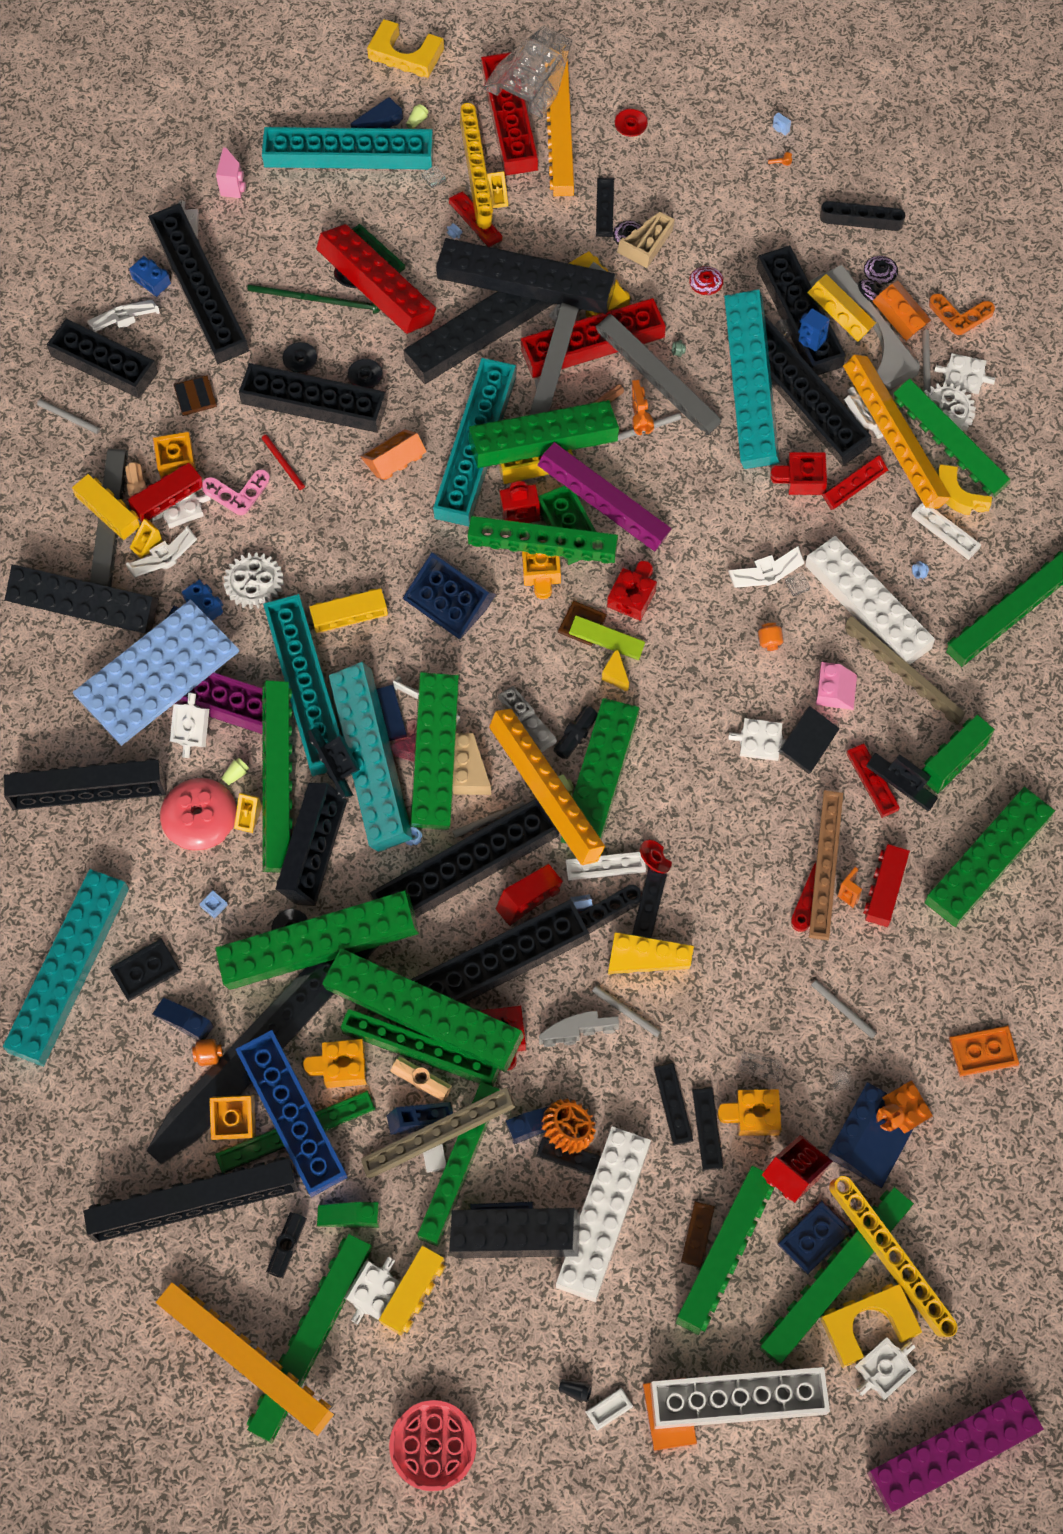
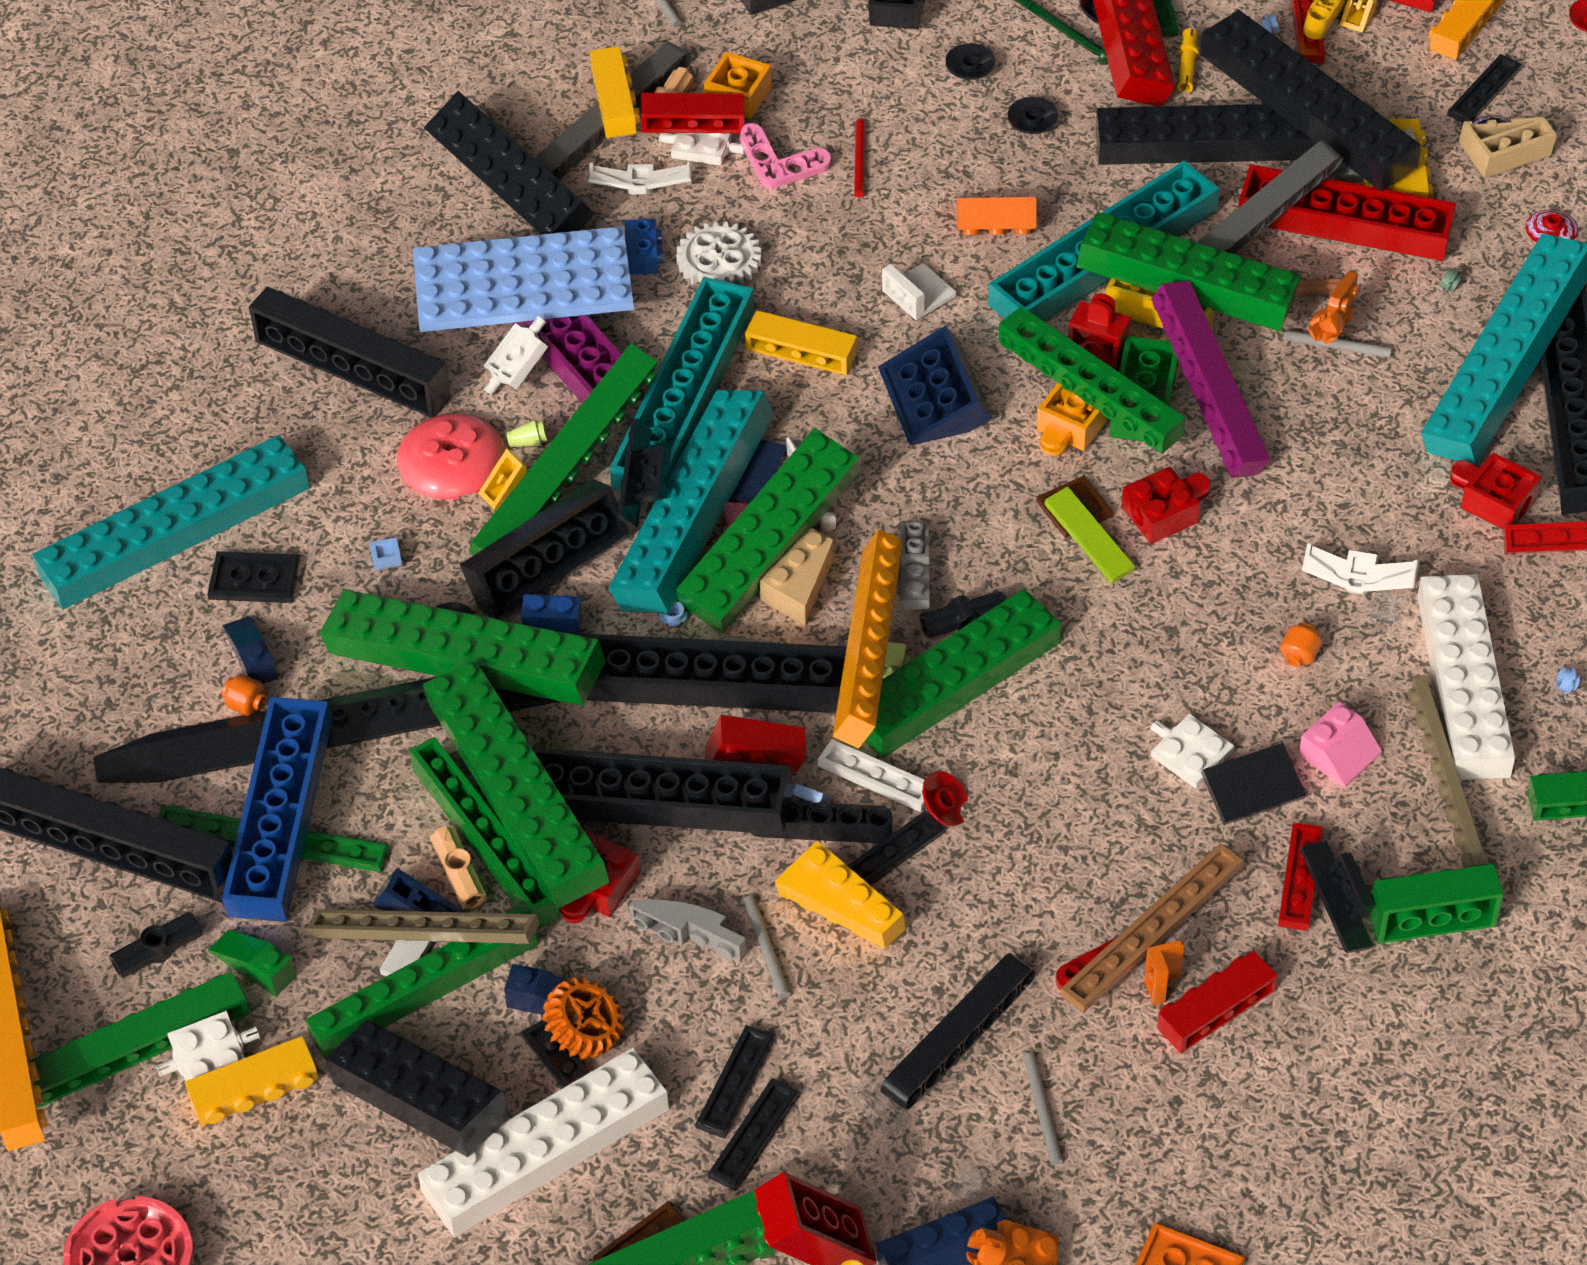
camera: 35 degrees right, 15 degrees down
(145, 539) = (633, 150): yellow slope -> none
(195, 395) = (816, 42): tile -> none
(232, 1117) = (211, 772): light orange brick -> none
(313, 397) = (949, 107): black brick -> none
(340, 1063) = (369, 799): light orange brick -> none
(346, 883) = (552, 612): none -> blue brick
(387, 533) = (916, 290): none -> white bracket
(422, 278) = (1188, 53): none -> yellow pin
(615, 673) = (1067, 575): yellow slope -> none
(658, 374) = (1393, 288): dark grey beam -> none
(755, 1112) = (813, 1150): light orange brick -> none
(770, 995) = (957, 1031): none -> black beam
(989, 857) = (1383, 1047): green brick -> none

